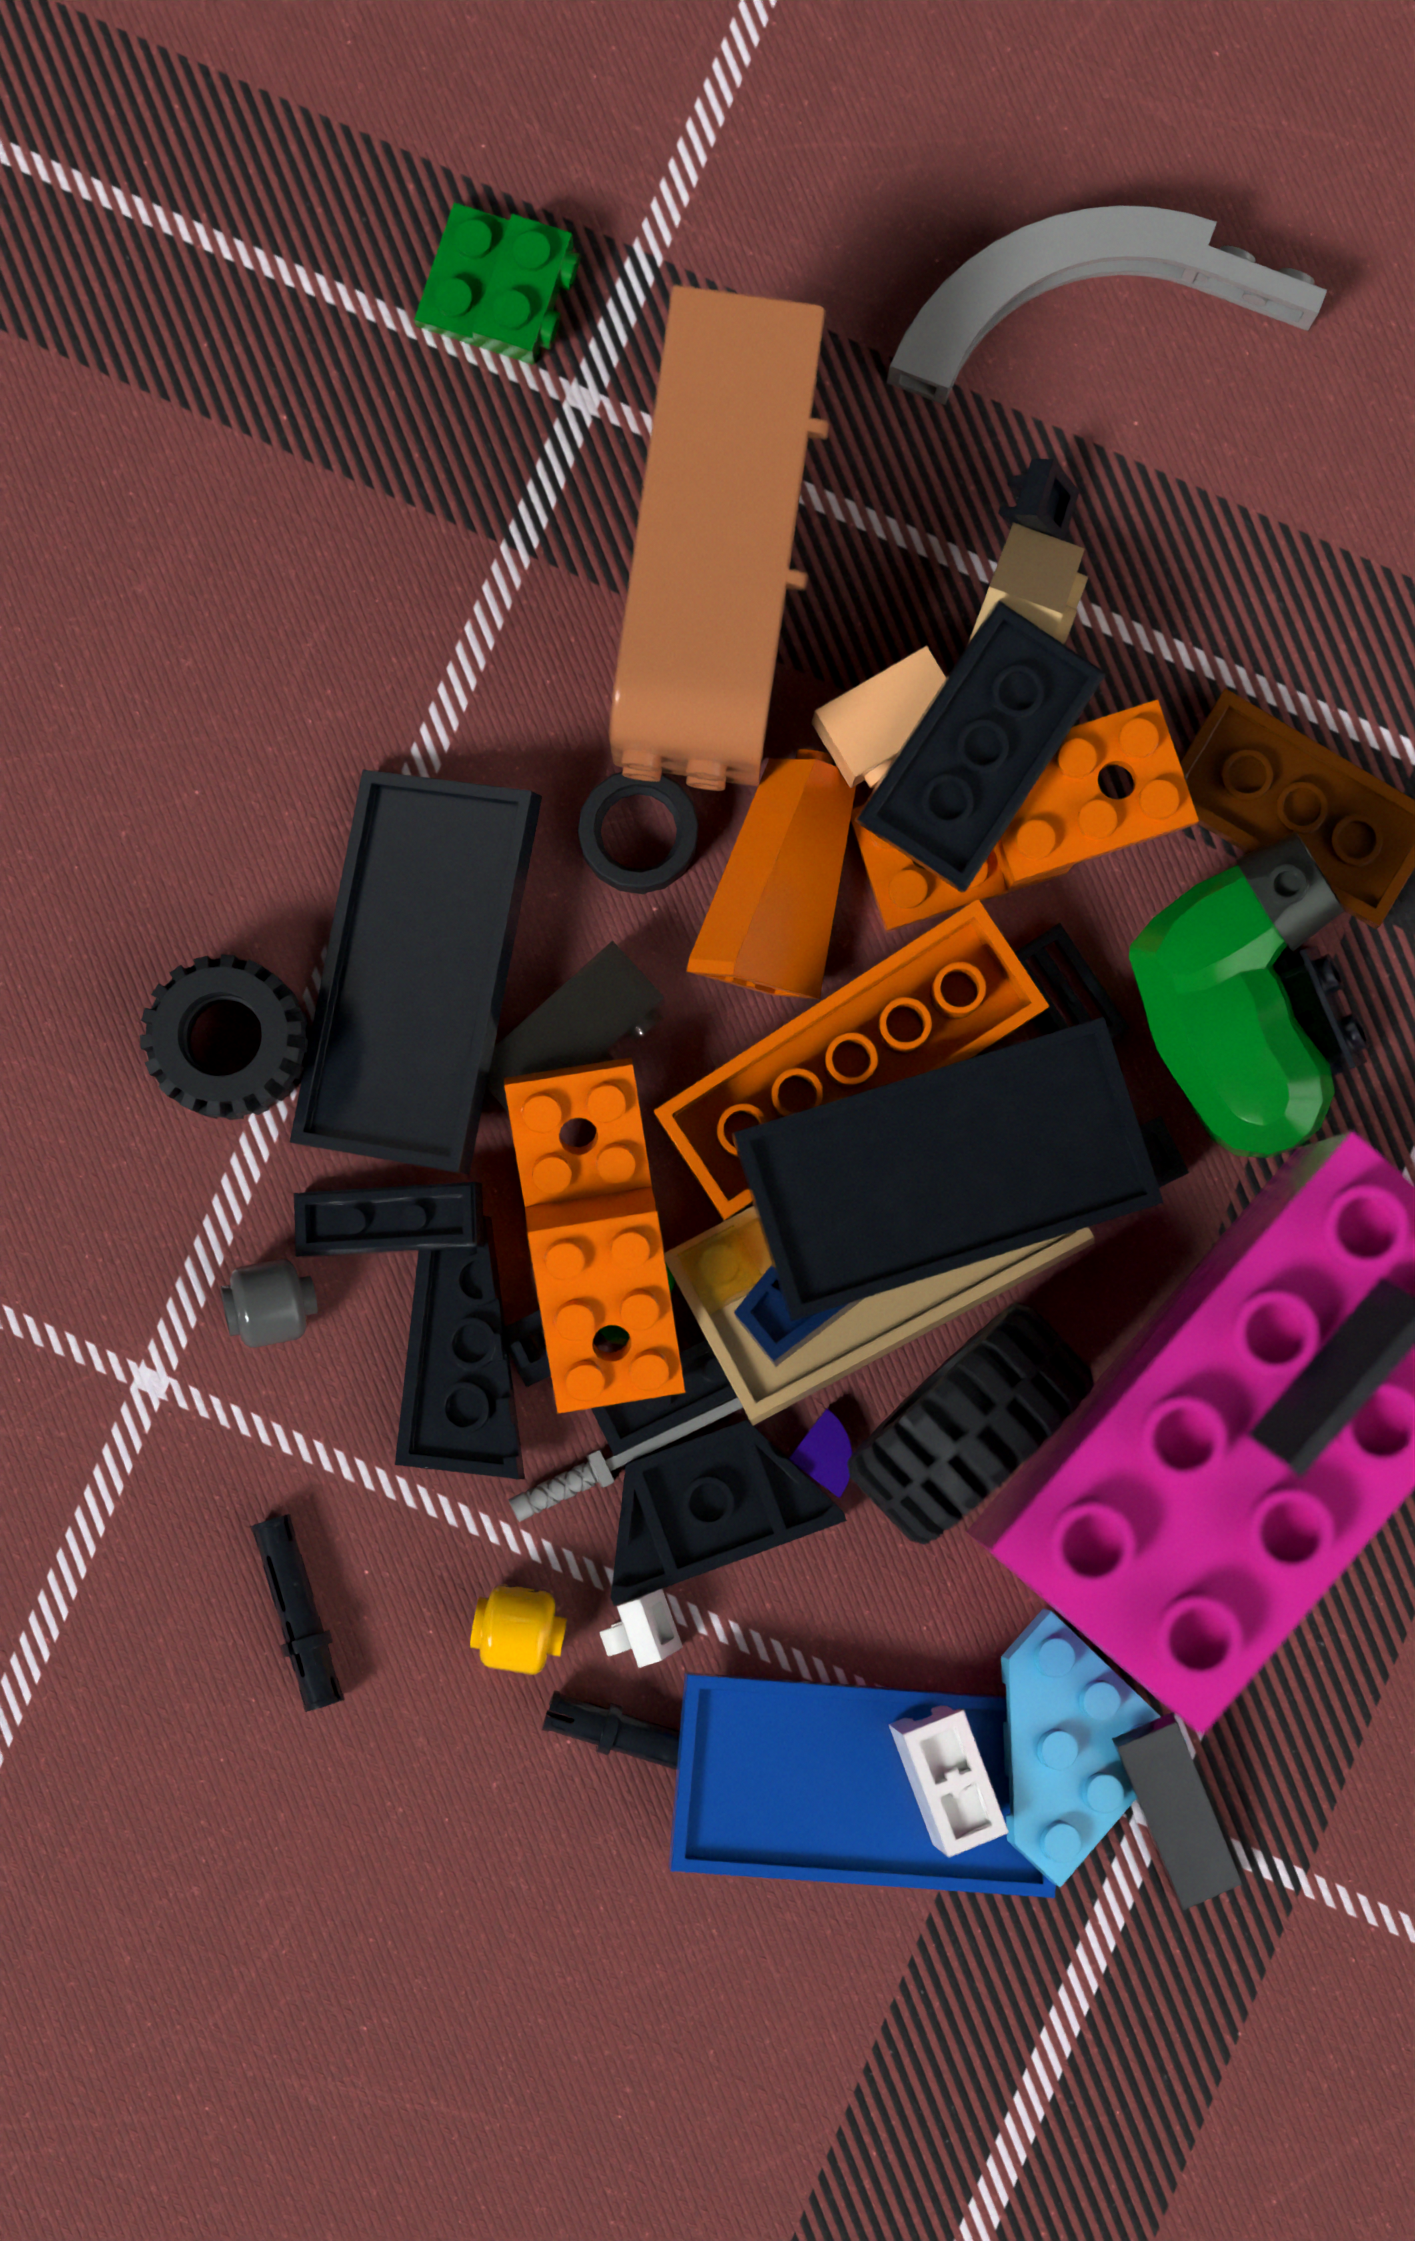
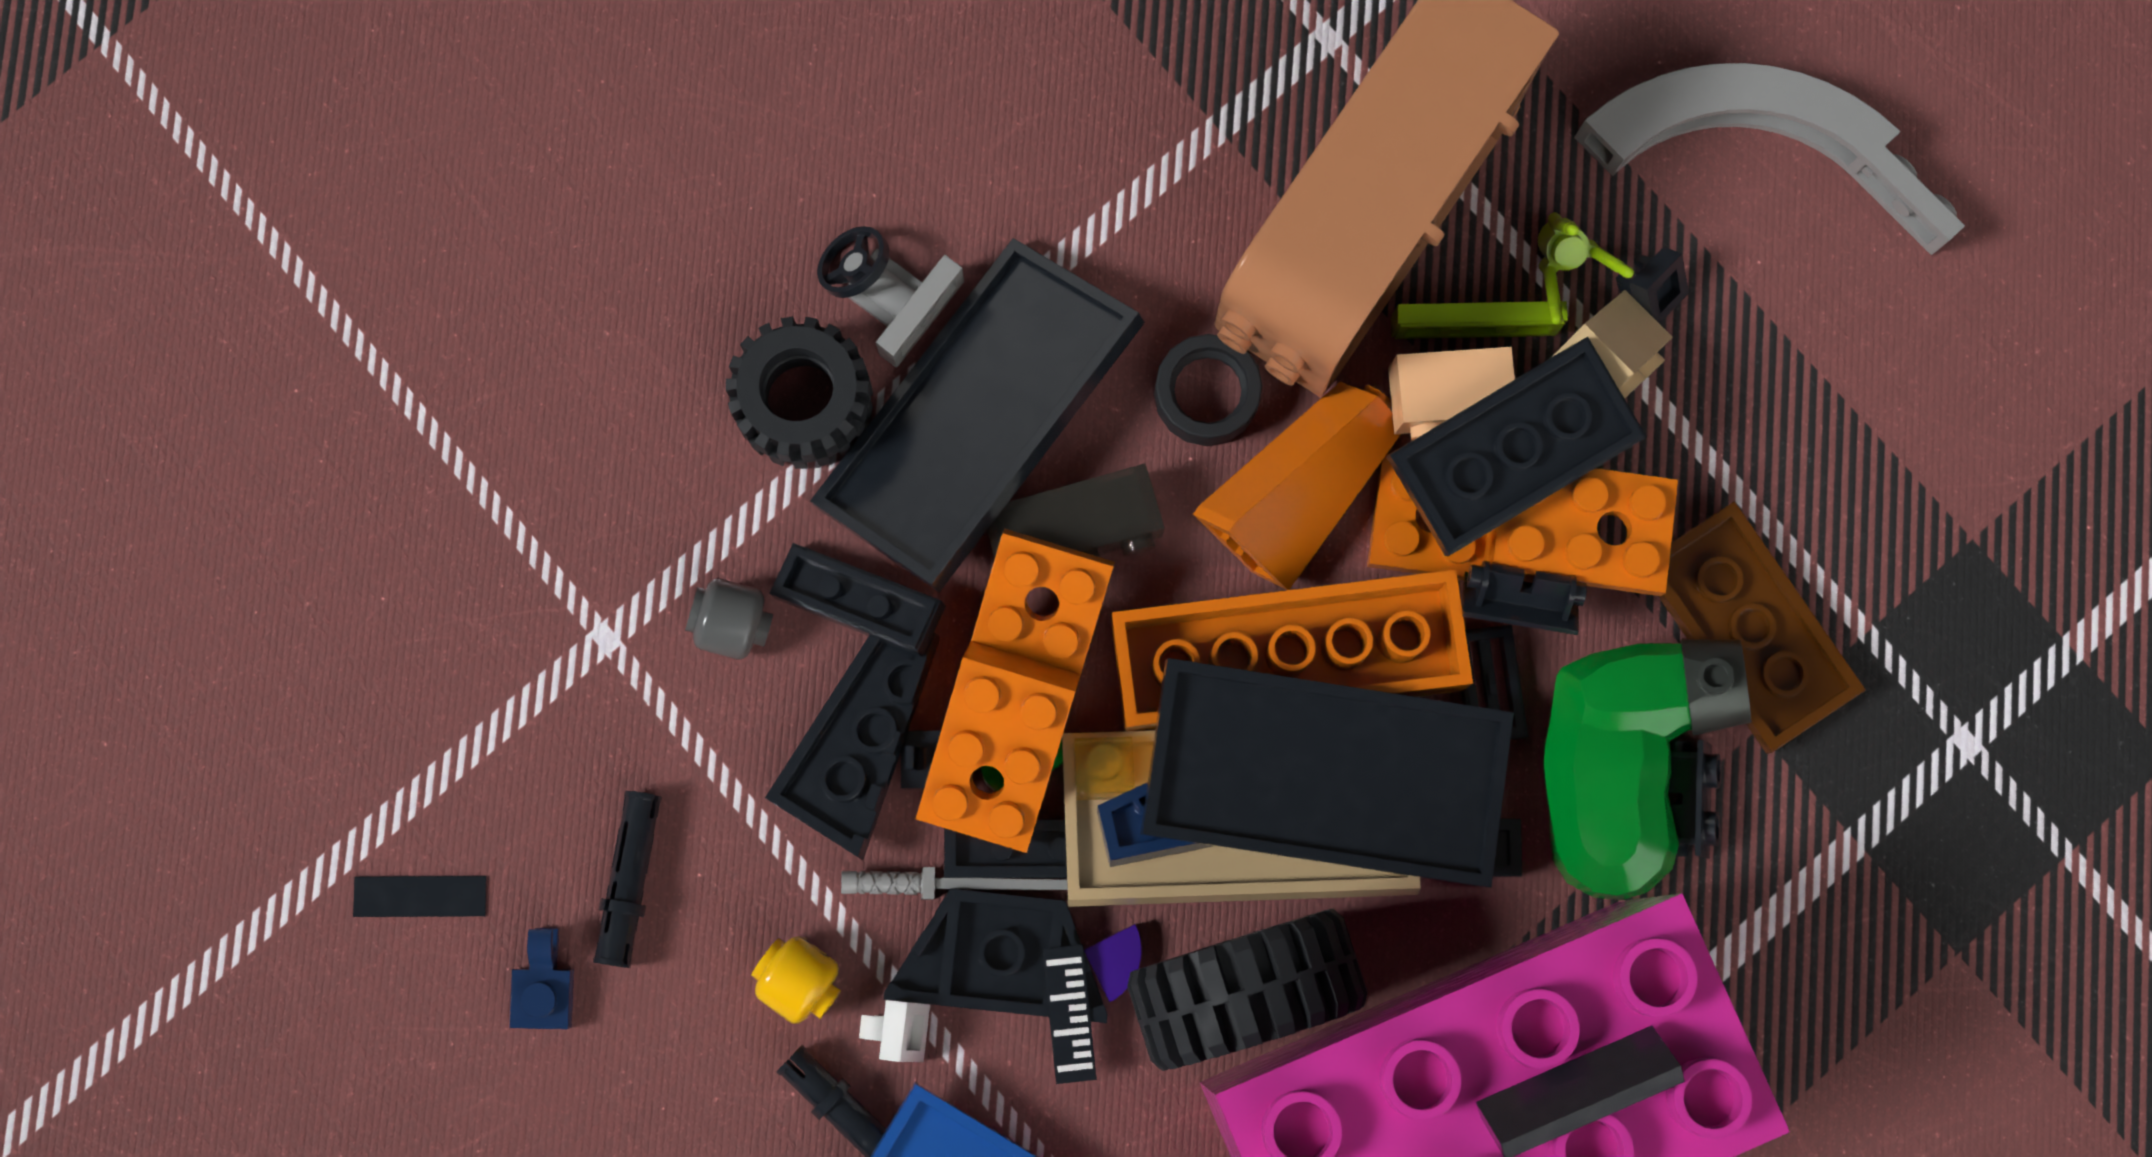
camera: 25 degrees right, 5 degrees down
(96, 1731) = (419, 896): none -> black sticker
(260, 885) = (888, 289): none -> light grey piece
(268, 1765) = (542, 993): none -> dark blue plate
(805, 1530) = (1069, 1014): none -> black sticker
(879, 625) = (1474, 320): none -> lime tile
(933, 508) = (1566, 249): none -> lime plant
(1045, 902) = (1503, 596): none -> black hinge

